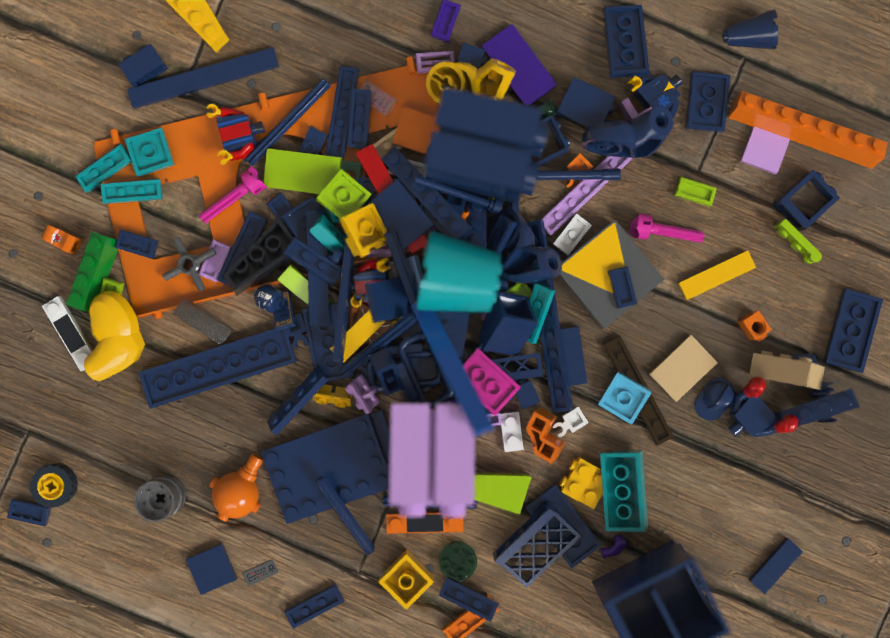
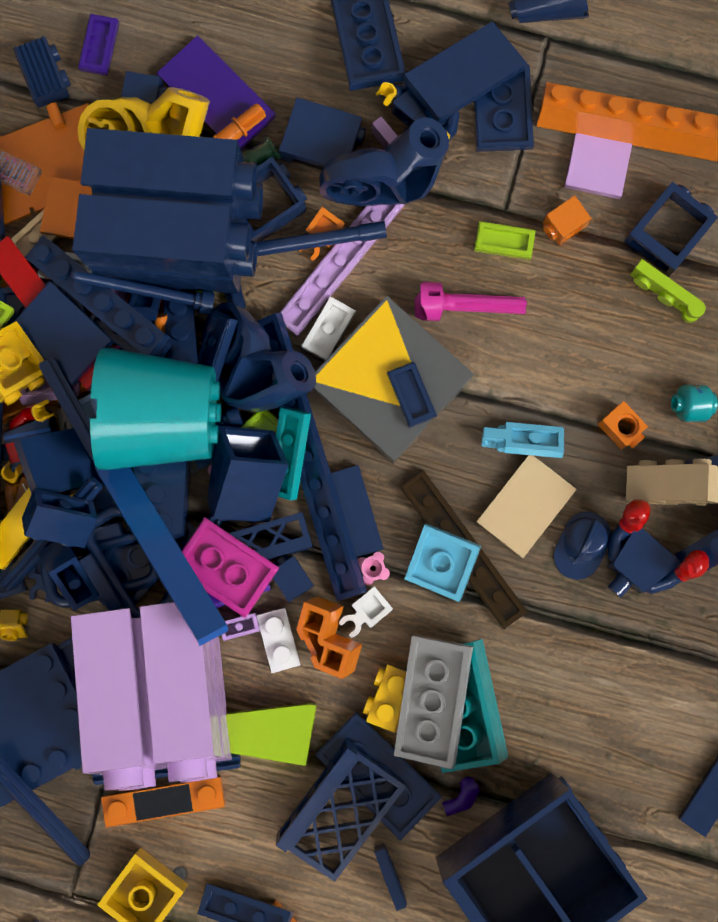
camera: 10 degrees left, 5 degrees down
(364, 394) = (41, 614): lavender hips -> none
(388, 337) = (59, 518): none -> dark blue brick
(405, 34) = (41, 71): none -> dark blue brick
(419, 63) = (83, 97): lavender tile -> none
(457, 561) = (222, 855): clear green tile -> none
(532, 91) = (242, 124): none -> orange axle
(561, 584) = (390, 876): none -> dark blue tile
(583, 394) = (377, 561): none -> bright pink plate
(607, 486) = (433, 701): none -> light grey plate
(688, 75) = (464, 72): none -> dark blue tile
(689, 325) = (525, 439): none -> medium azure hinge
(716, 275) = (555, 358): yellow tile -> none
(738, 185) = (566, 220): none -> orange brick
(803, 318) = (694, 403): none -> teal head

